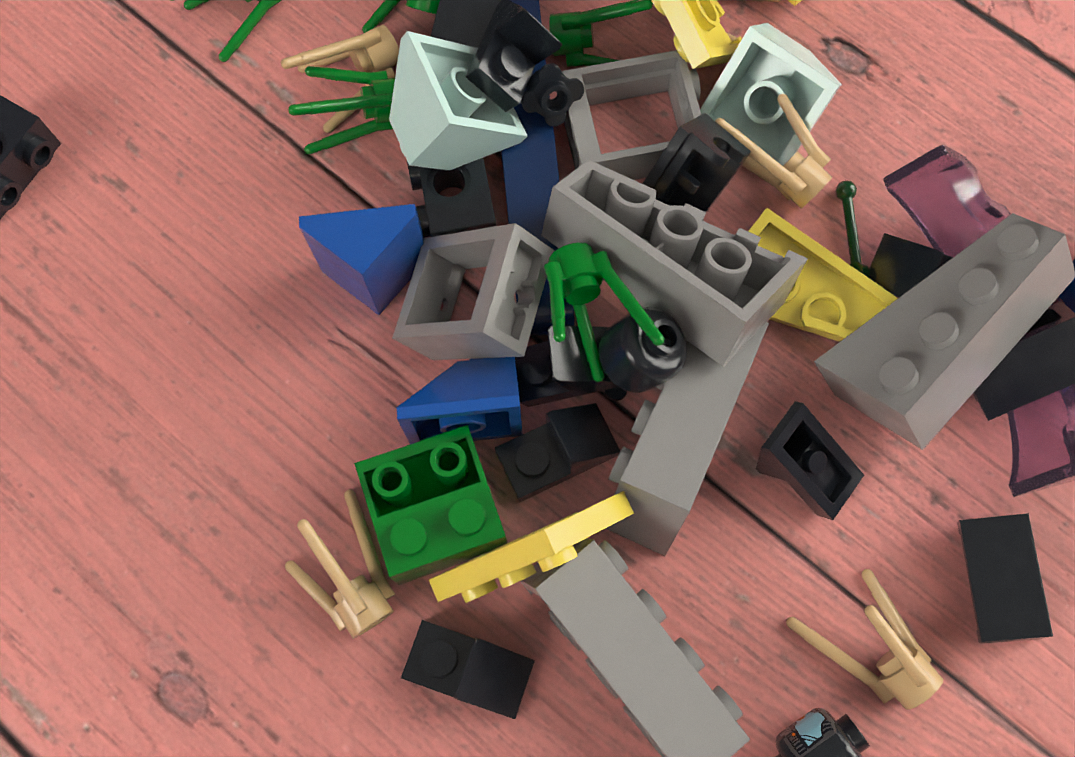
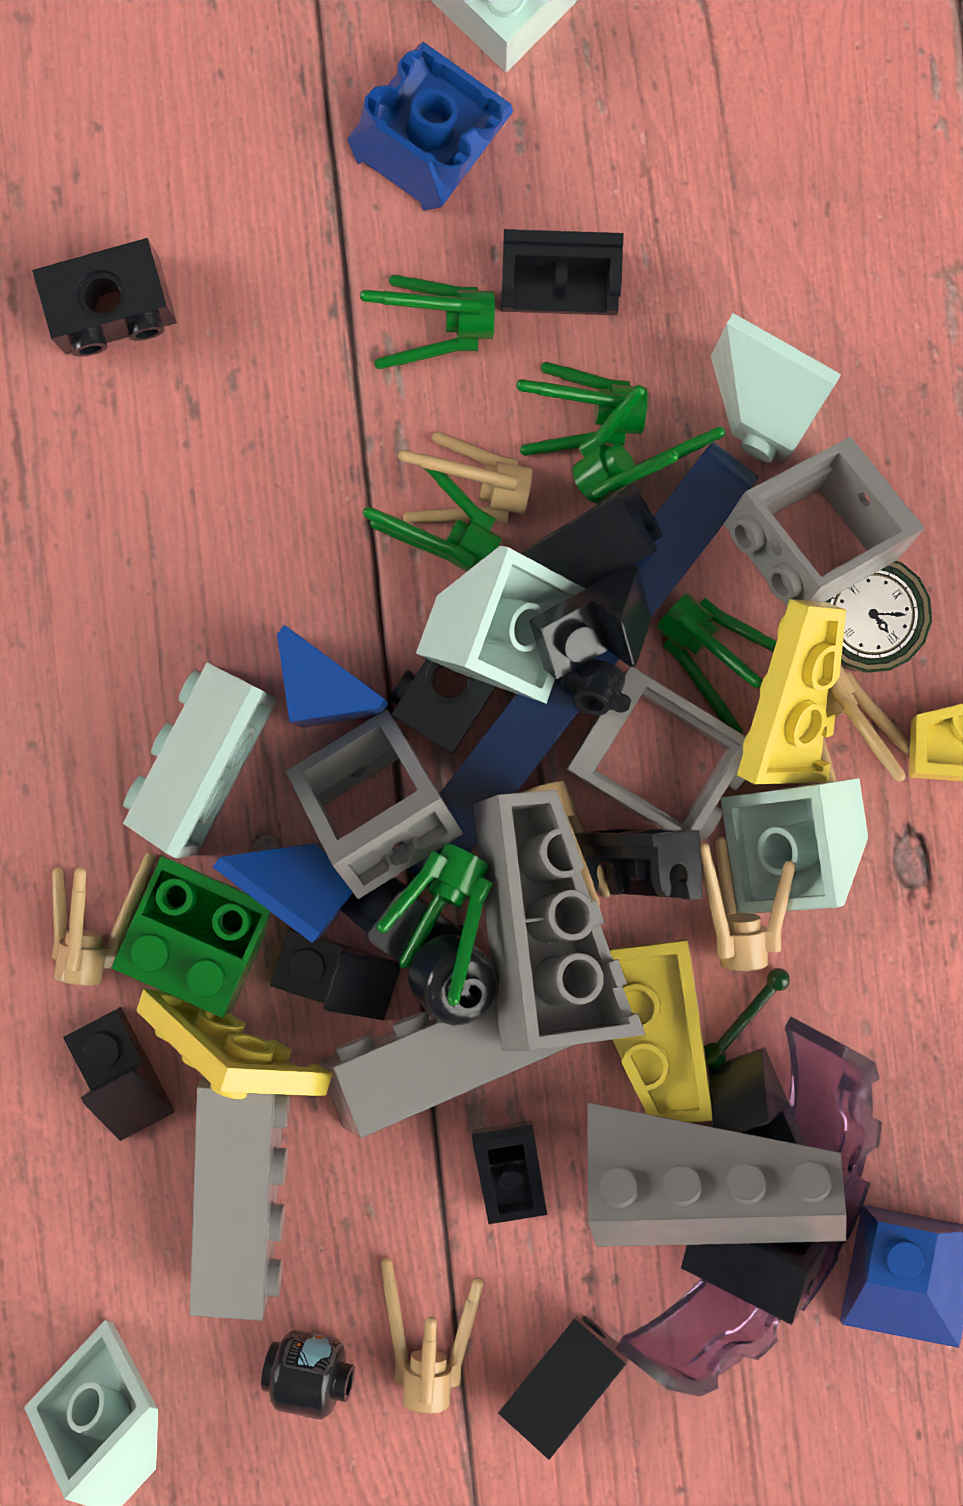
camera: 45 degrees right, 15 degrees up
(320, 381) = (197, 761): none -> light aqua slope

